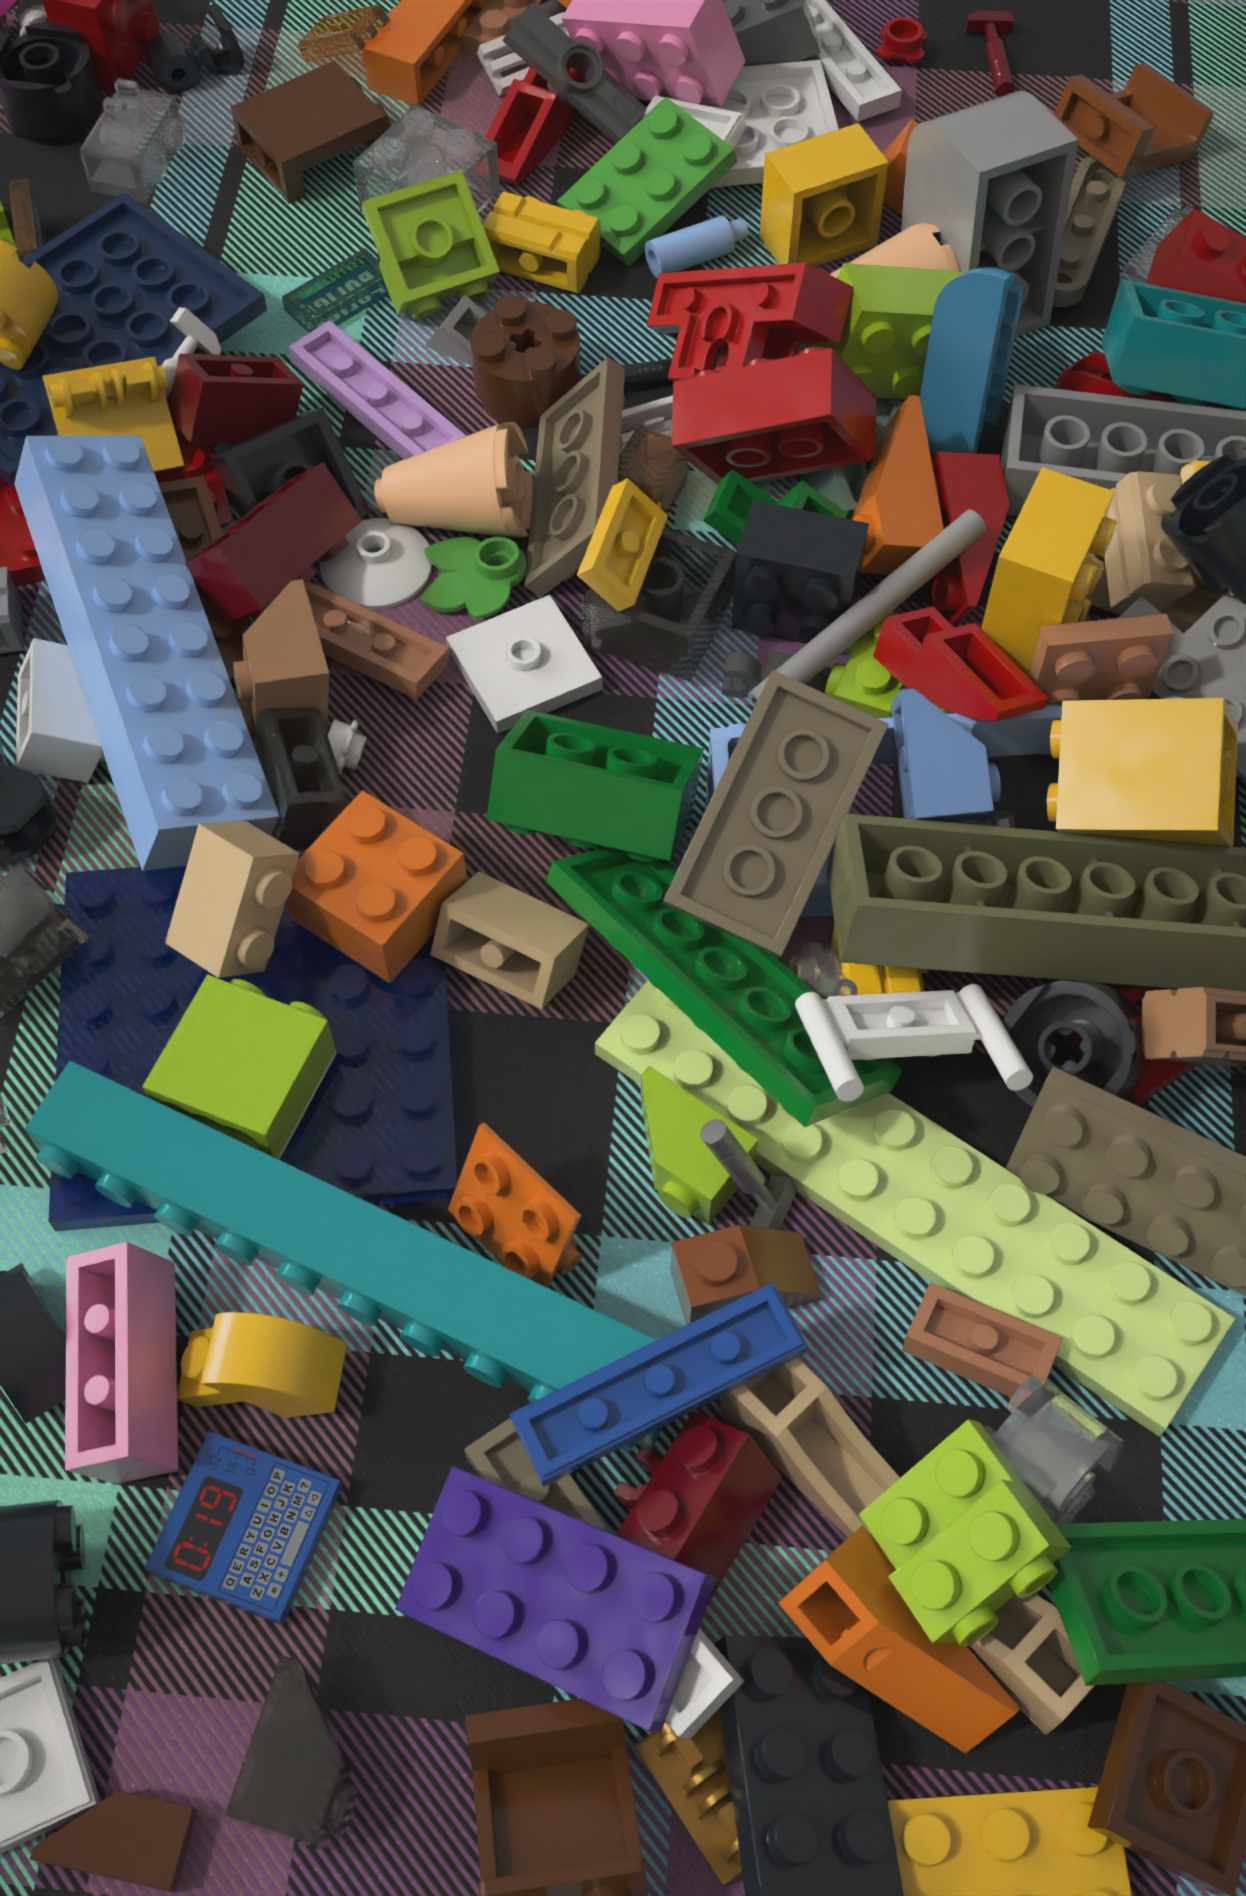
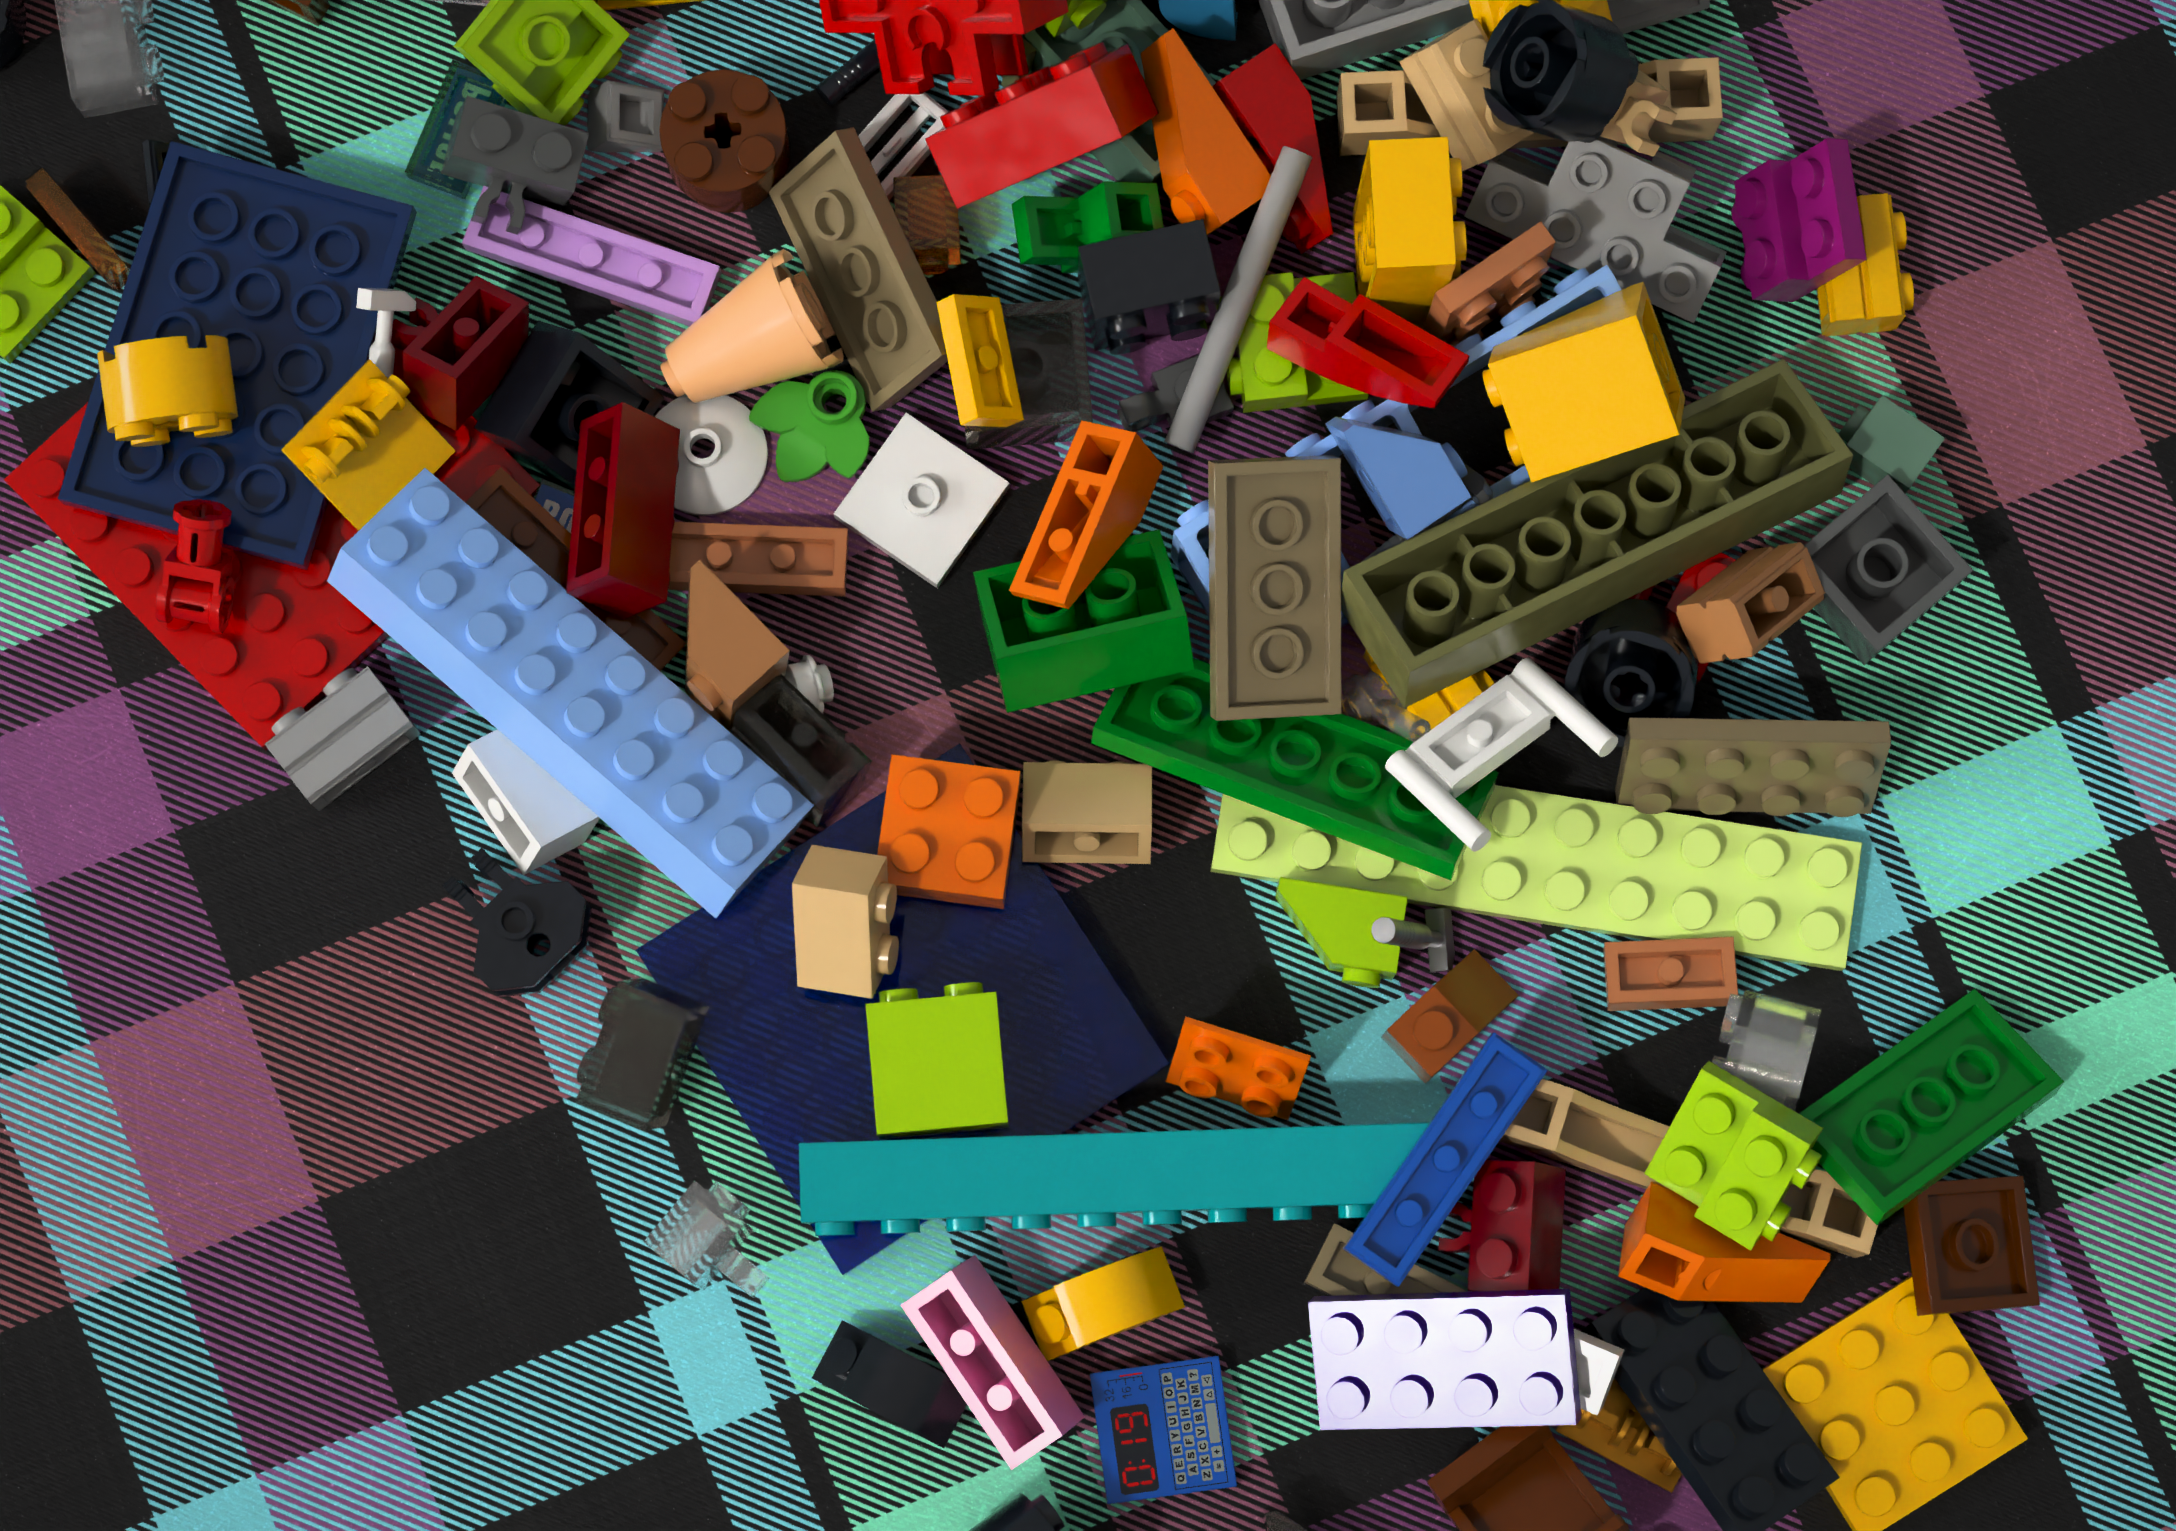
camera: 30 degrees left, 20 degrees up
(362, 300) = (513, 156): none -> dark grey brick
(659, 696) = (1087, 514): none -> orange slope

